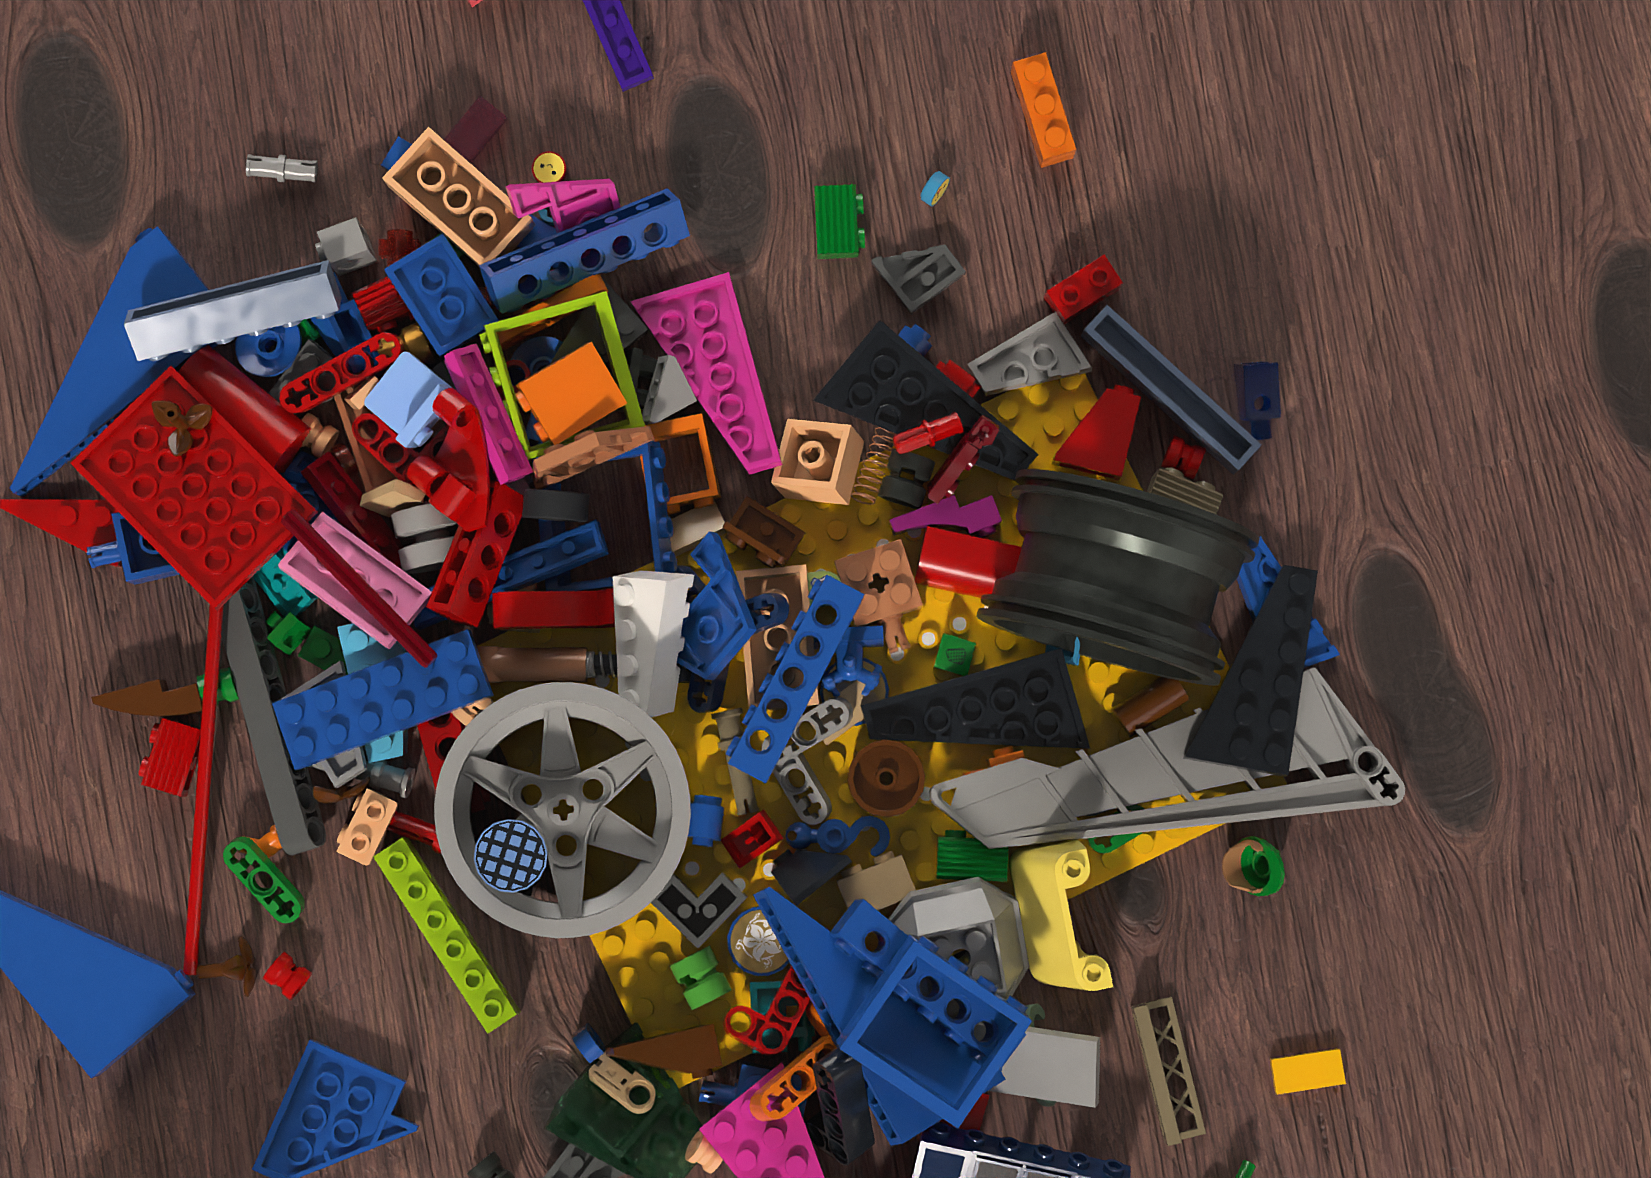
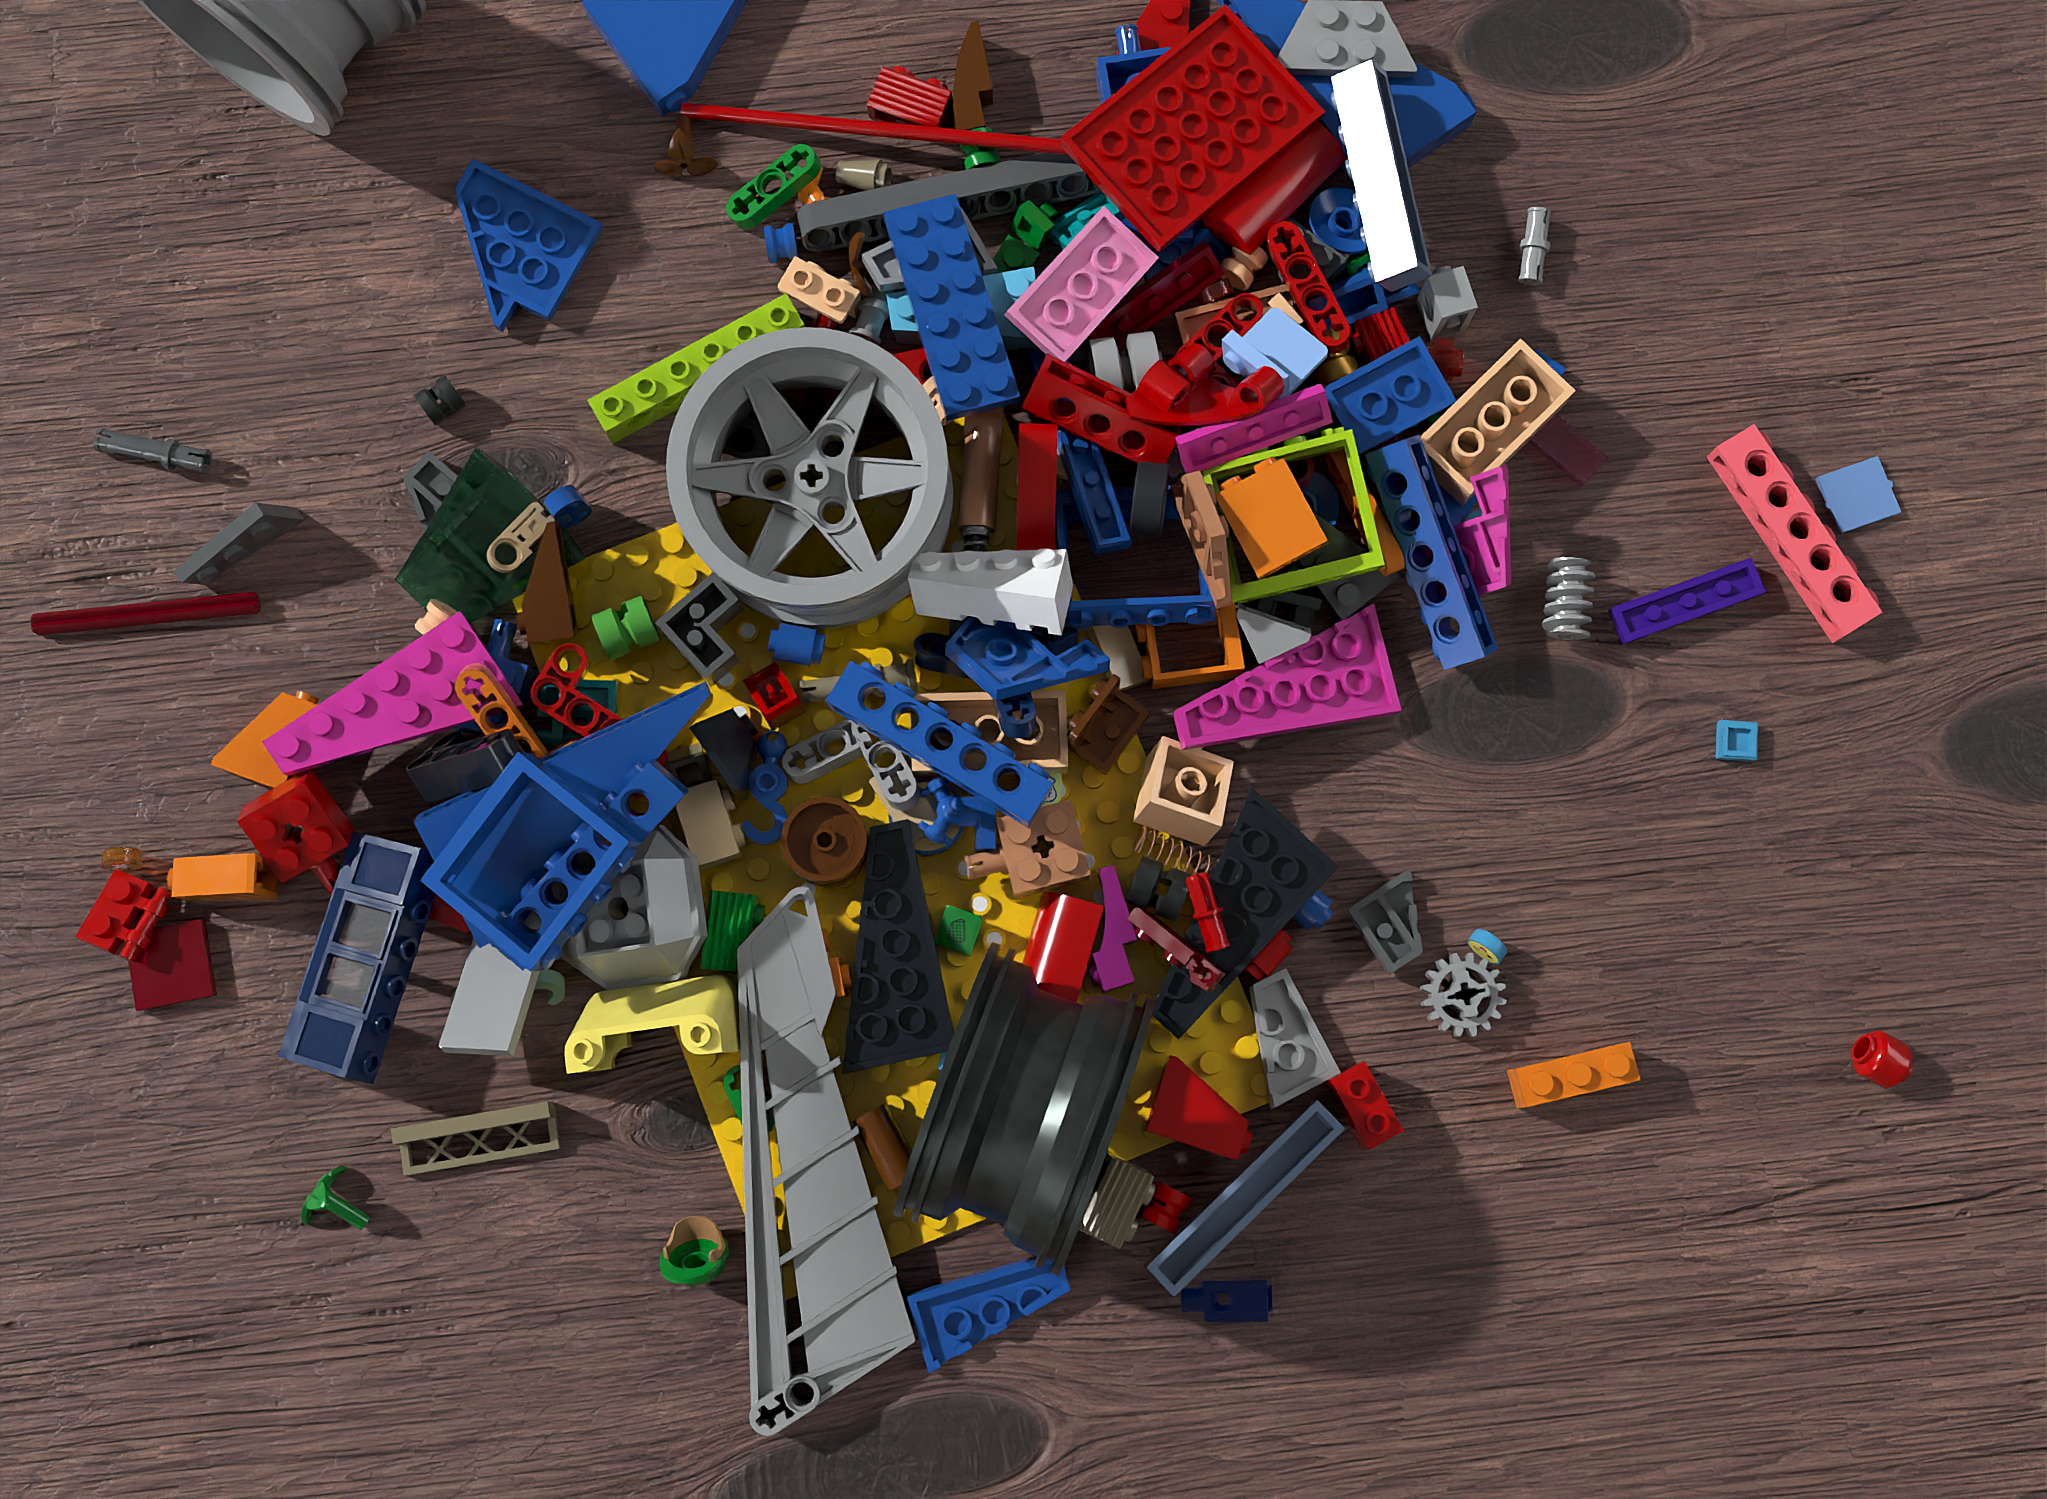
camera: 90 degrees right, 5 degrees down
(95, 350) = (1343, 35): none -> light grey wing
(170, 415) = (1270, 106): reddish brown plant -> none
(247, 792) = (864, 173): none -> dark tan cone
(287, 975) = (671, 205): red wheel -> none
(319, 868) = (781, 242): none -> blue wheel
(359, 588) = (1070, 284): dark red axle -> none
(392, 498) = (1169, 332): tan tile -> none
(510, 855) = (759, 404): tile -> none
(549, 167) = (1525, 526): light yellow tile -> none
(616, 127) = (1567, 598): none -> light grey piece
(755, 945) = (654, 684): tile -> none
(825, 907) = (689, 765): none -> dark tan slope
(837, 221) = (1454, 834): green brick -> none
(964, 211) = (1467, 1010): none -> light grey gear
(1259, 697) = (884, 1272): black wing -> none
(1307, 1071) = (461, 1298): yellow tile -> none

